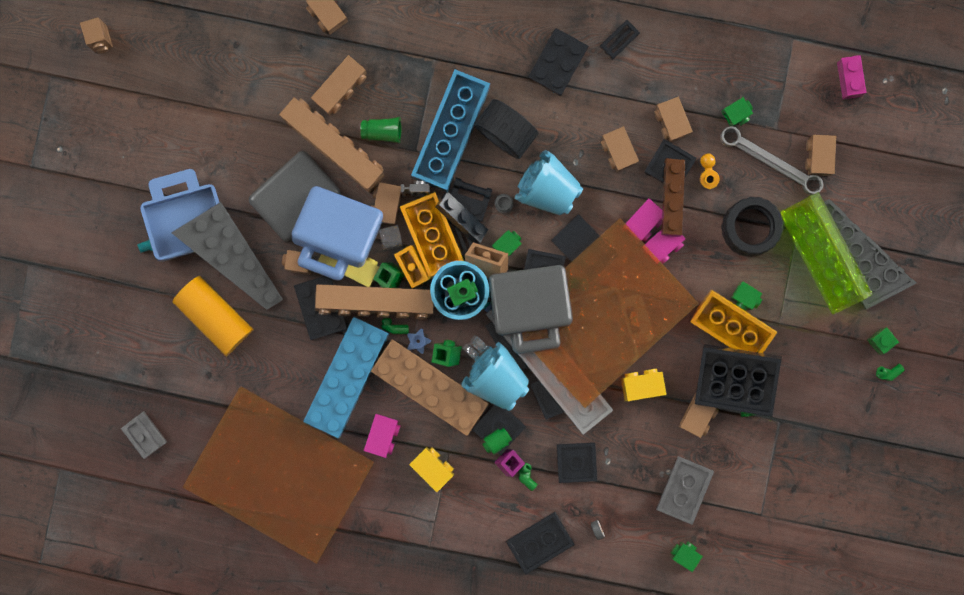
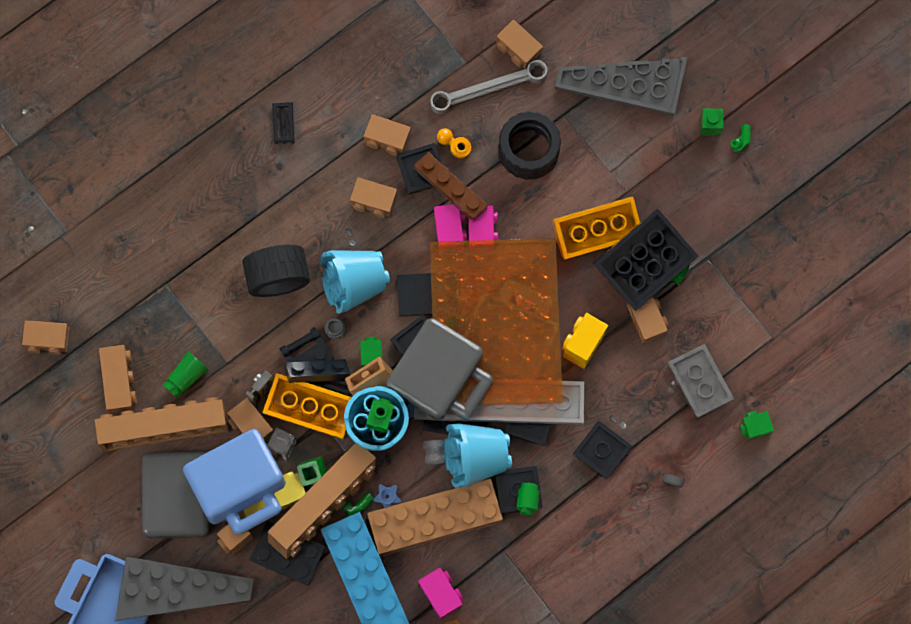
camera: 50 degrees left, 10 degrees down
(412, 266) = (321, 444): light orange brick -> none
(432, 468) = (505, 572): yellow brick -> none
(446, 353) = (418, 478): green brick -> none
(450, 130) = (236, 318): dark azure brick -> none
(514, 465) = (555, 505): magenta plate -> none
(524, 477) = (577, 503): green arm -> none
(540, 543) = (644, 538): black tile -> none
(558, 62) = (257, 186): black plate -> none
(738, 112) = (426, 80): green brick -> none
(746, 296) = (582, 197): green brick -> none
(825, 253) = (601, 106): clear neon green brick -> none

